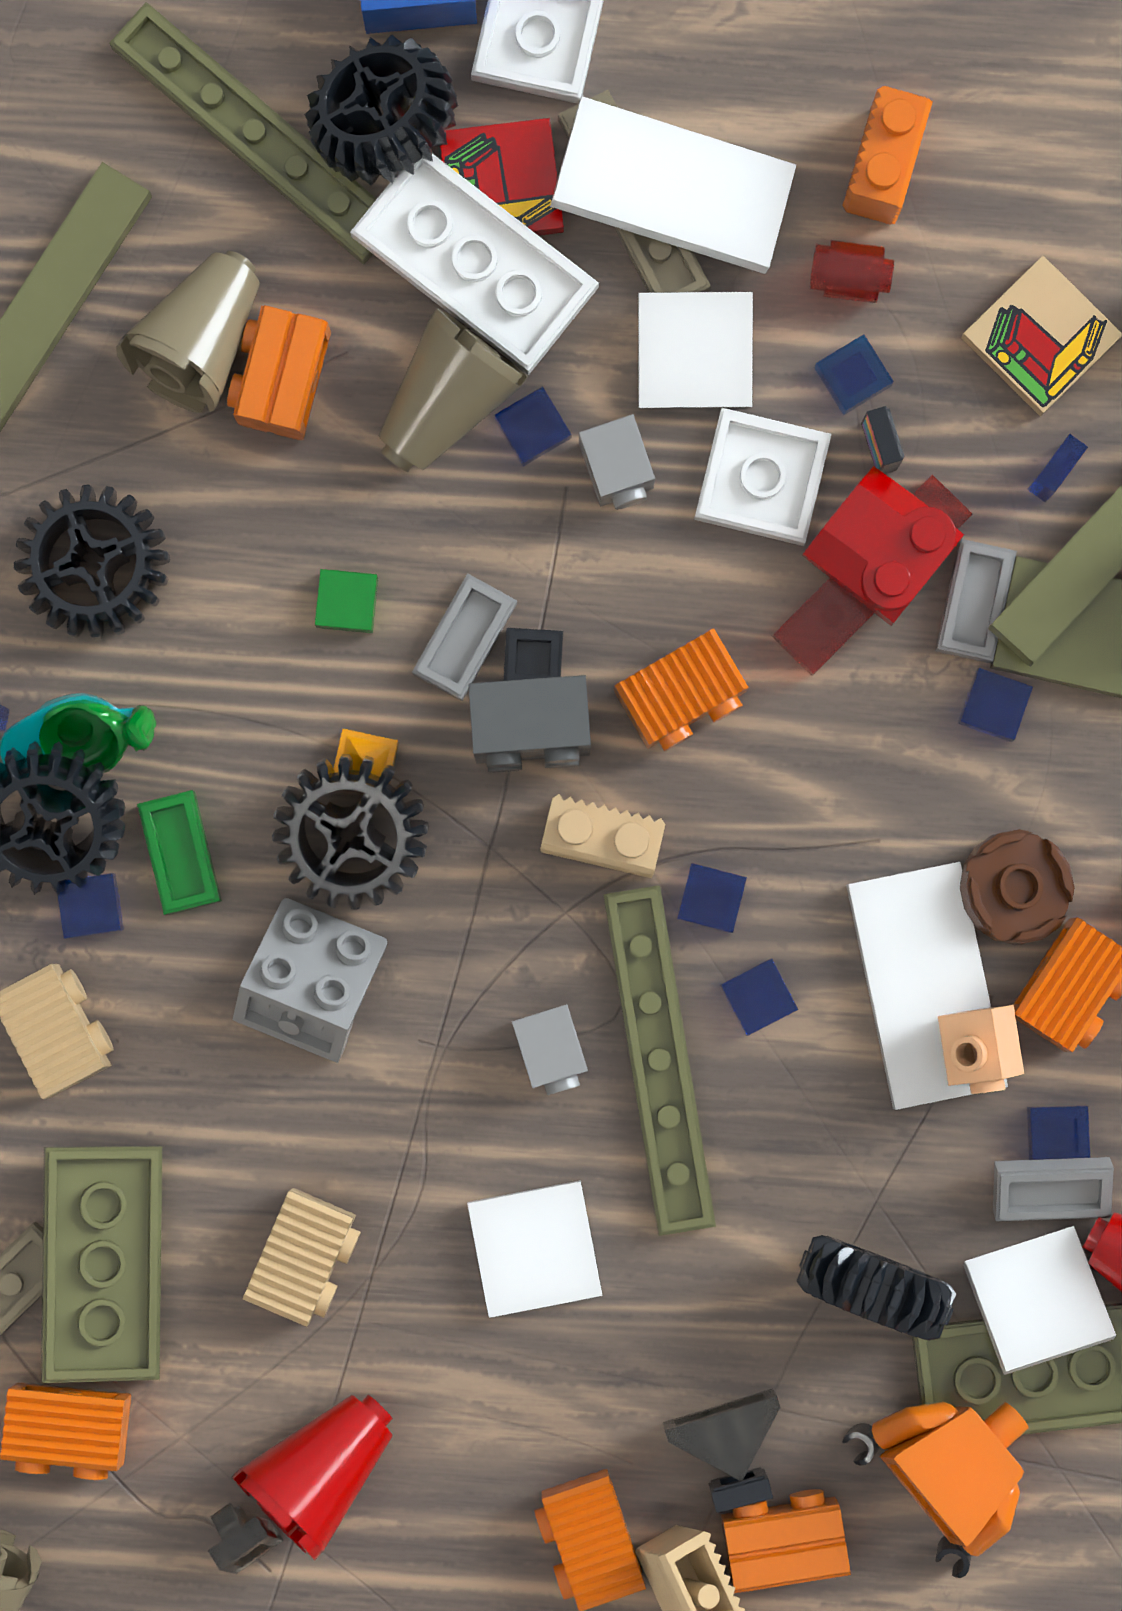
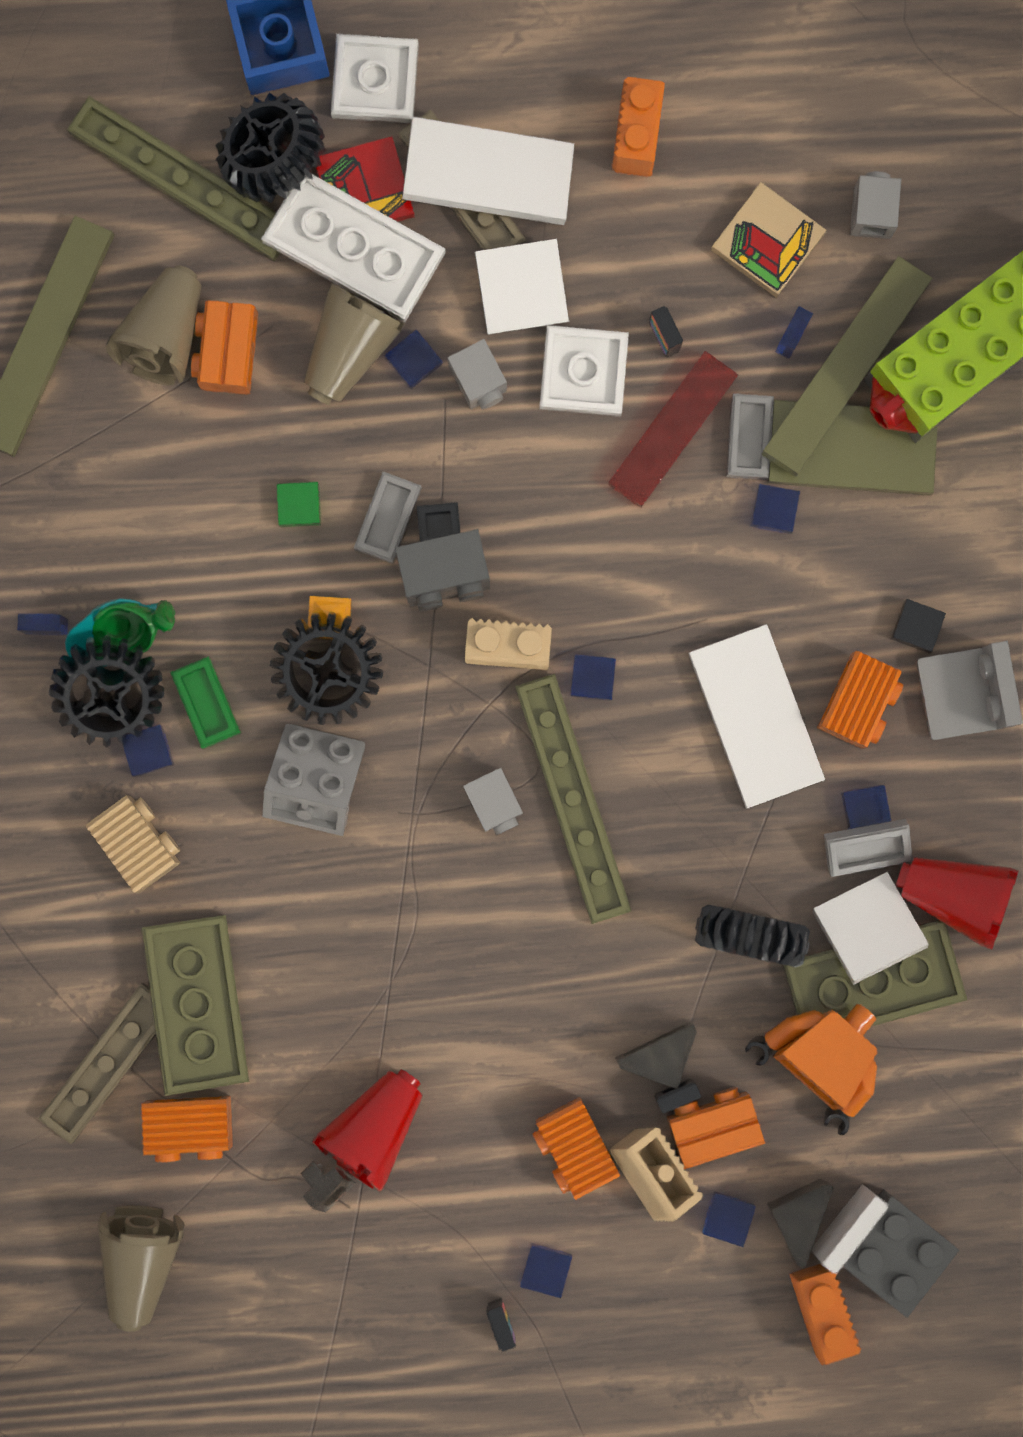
camera: 10 degrees left, 0 degrees up
(68, 568) = (94, 511): black gear -> none
(301, 1257) = (337, 978): tan brick -> none
(534, 1249) = (504, 947): white tile -> none
(681, 690) = (549, 531): orange brick -> none
(759, 997) = (637, 743): clear blue tile -> none
(851, 271) = (625, 213): clear red brick -> none
(853, 374) = (638, 287): clear blue tile -> none
(883, 545) = (677, 405): red slope -> none
(981, 1048) = (801, 753): light nougat brick -> none
(1016, 887) = (810, 636): reddish brown tile -> none

